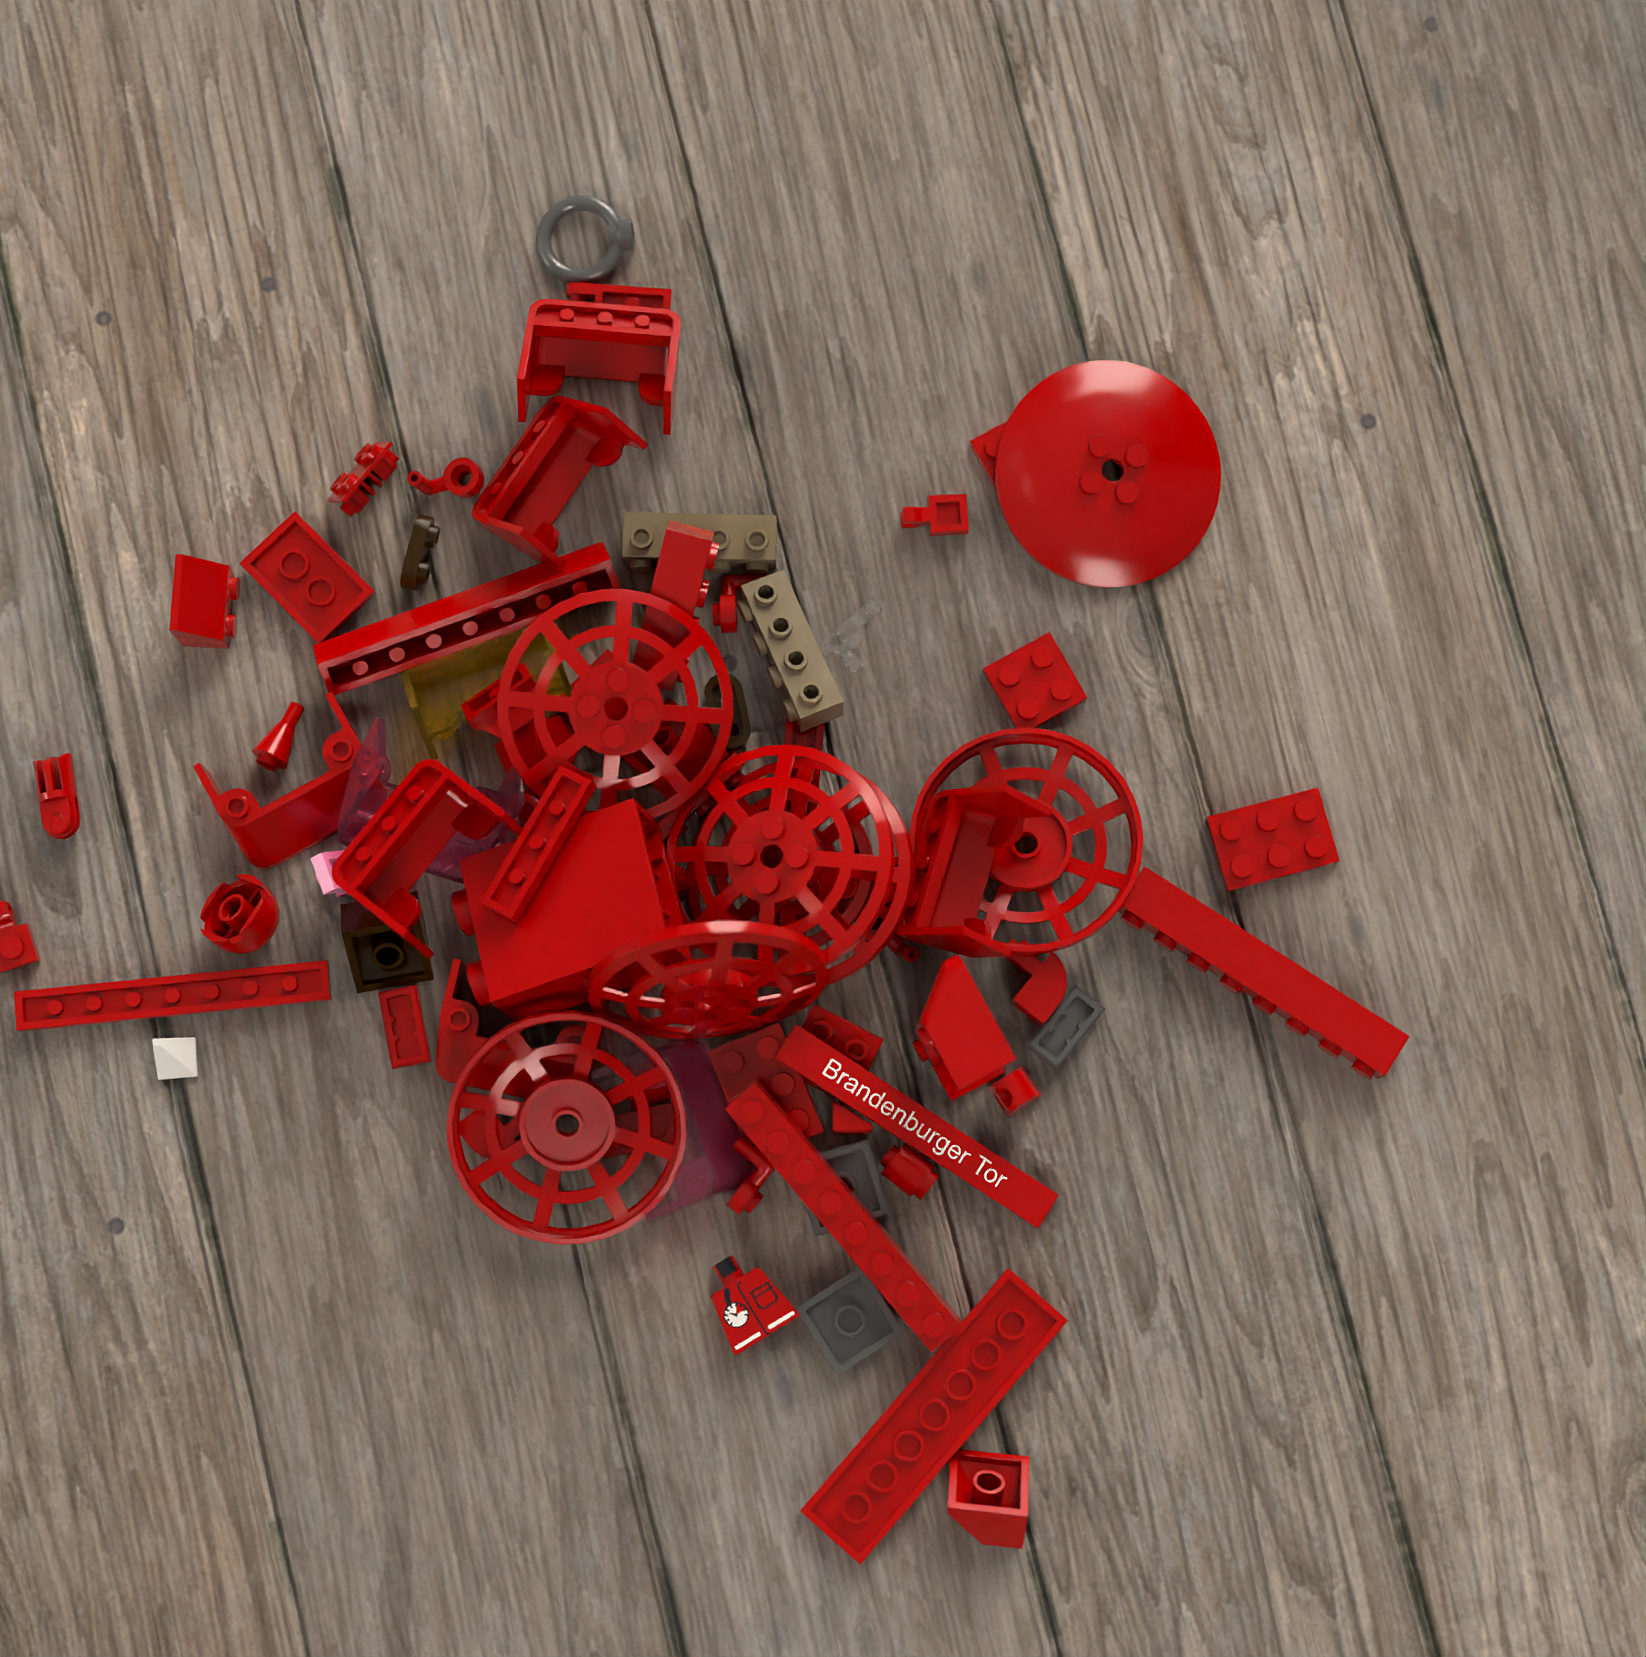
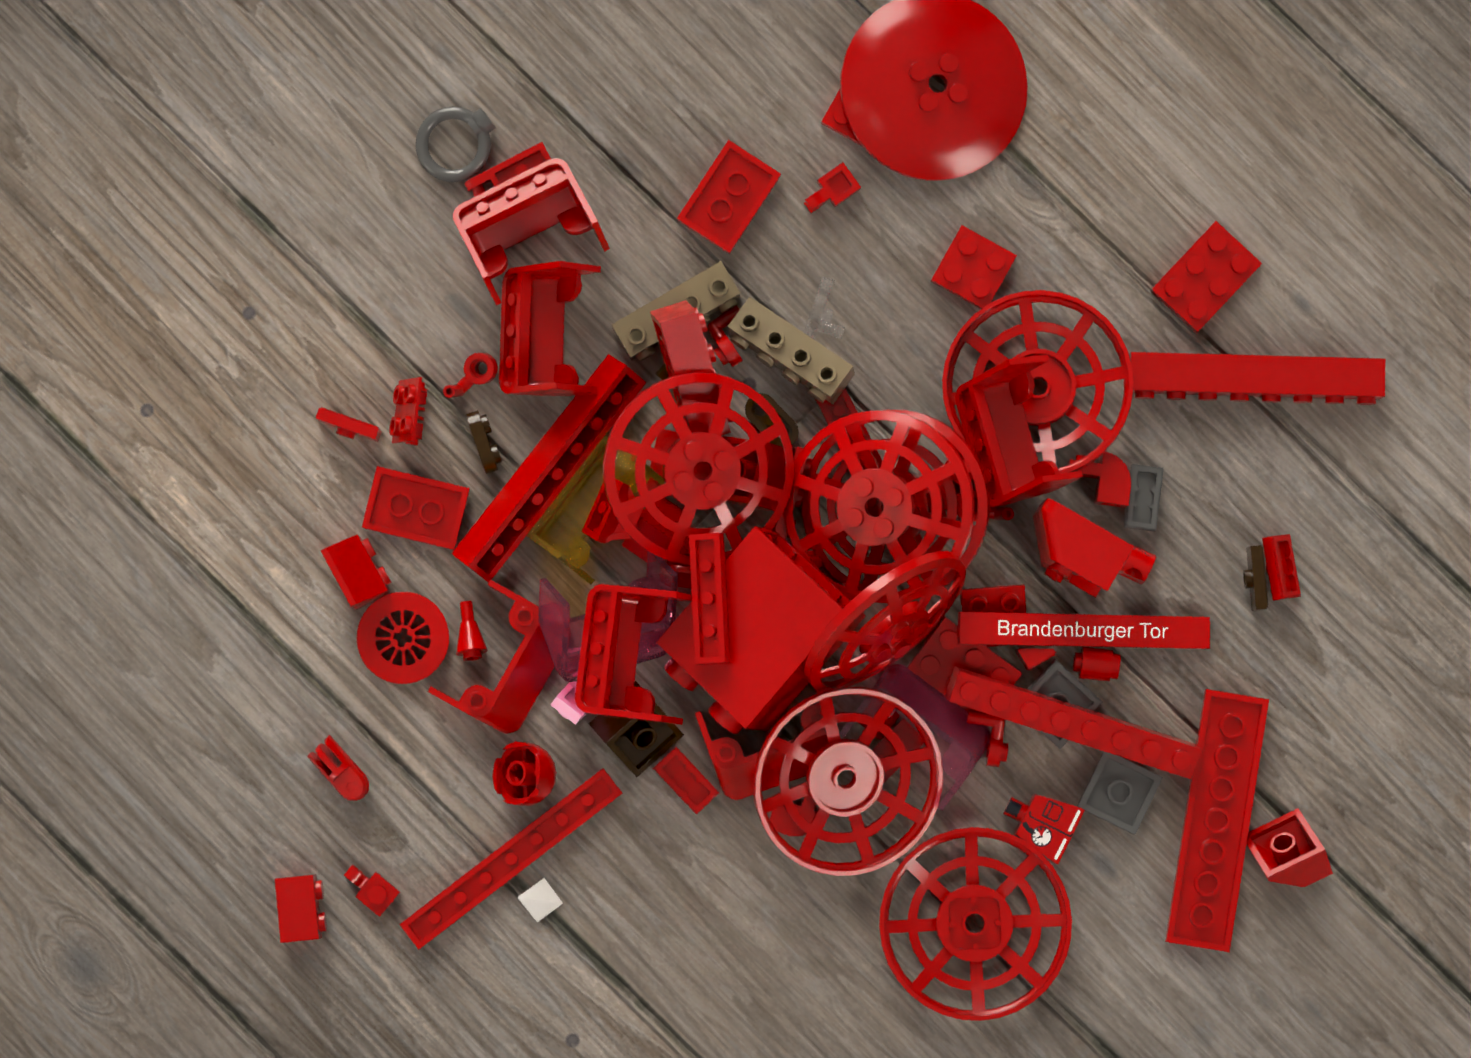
camera: 30 degrees left, 5 degrees up
(188, 666) = (368, 640): none -> red piece
(292, 454) = (348, 426): none -> red plate
(582, 1370) = (990, 939): none -> red dish
(827, 459) = (728, 197): none -> red plate
(1131, 1184) = (1255, 578): none -> dark brown plate
(1166, 1189) = (1281, 567): none -> red plate

